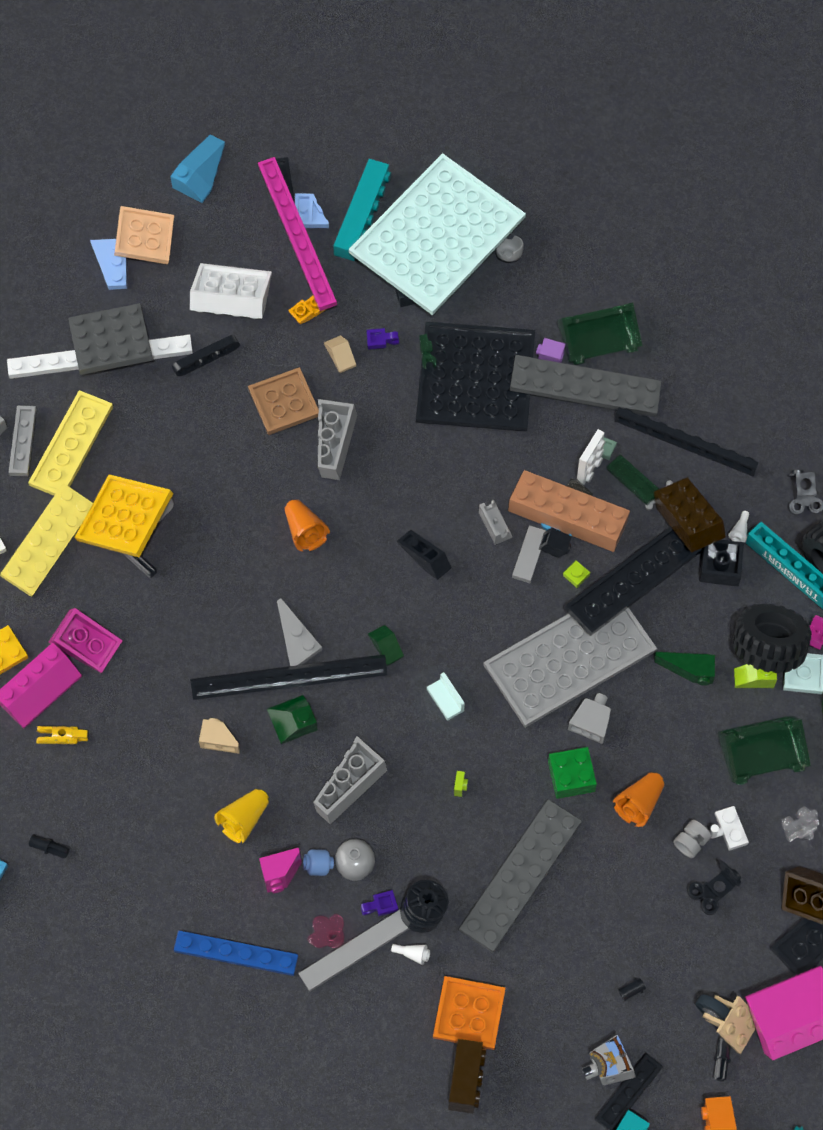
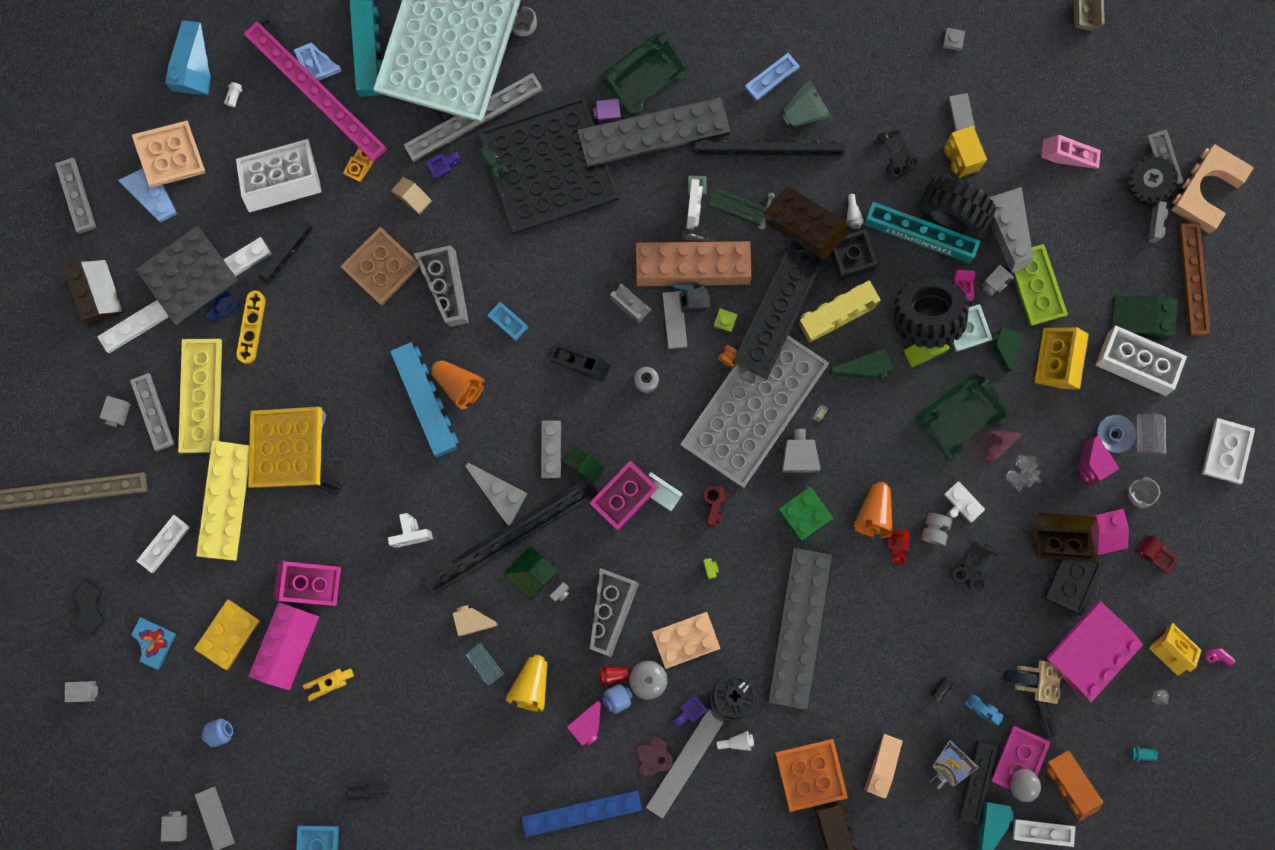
camera: 25 degrees left, 15 degrees up
(23, 321) = (93, 291): none -> dark brown slope
(47, 238) = (75, 195): none -> light grey plate
(129, 378) = (224, 305): none -> clear blue plate
(140, 404) = (251, 327): none -> yellow beam
(198, 636) = (410, 535): none -> white bracket
(210, 780) = (484, 664): none -> clear light blue tile
(224, 209) = (233, 93): none -> white pin
(267, 528) = (423, 399): none -> dark azure brick
(310, 746) = (560, 593): none -> light grey plate
(324, 840) = (611, 675): none -> red cone
(362, 619) = (551, 450): none -> light grey plate
(375, 492) = (507, 321): none -> dark azure plate
(407, 840) = (686, 640): none -> light nougat plate
(410, 683) = (624, 495): none -> dark pink brick
(413, 312) = (459, 125): none -> light grey plate
(478, 592) = (649, 374): none -> light grey head
(486, 737) = (715, 515): none -> dark red plate
(542, 1036) = (883, 766): none -> light nougat slope
(561, 603) = (728, 356): none -> orange wheel
(629, 692) = (821, 413): none -> clear piece
(649, 837) = (898, 543): none -> red plate
(664, 1022) = (985, 711): none -> dark azure plate
(672, 1111) = (1025, 785): none -> light grey hair
(679, 1090) = (1020, 751): none -> dark pink plate
(687, 607) = (839, 311): none -> light yellow wedge
(717, 382) = (772, 77): none -> light blue plate
(736, 418) = (805, 107): none -> sand green cone
(795, 787) = (1004, 439): none -> clear pink slope

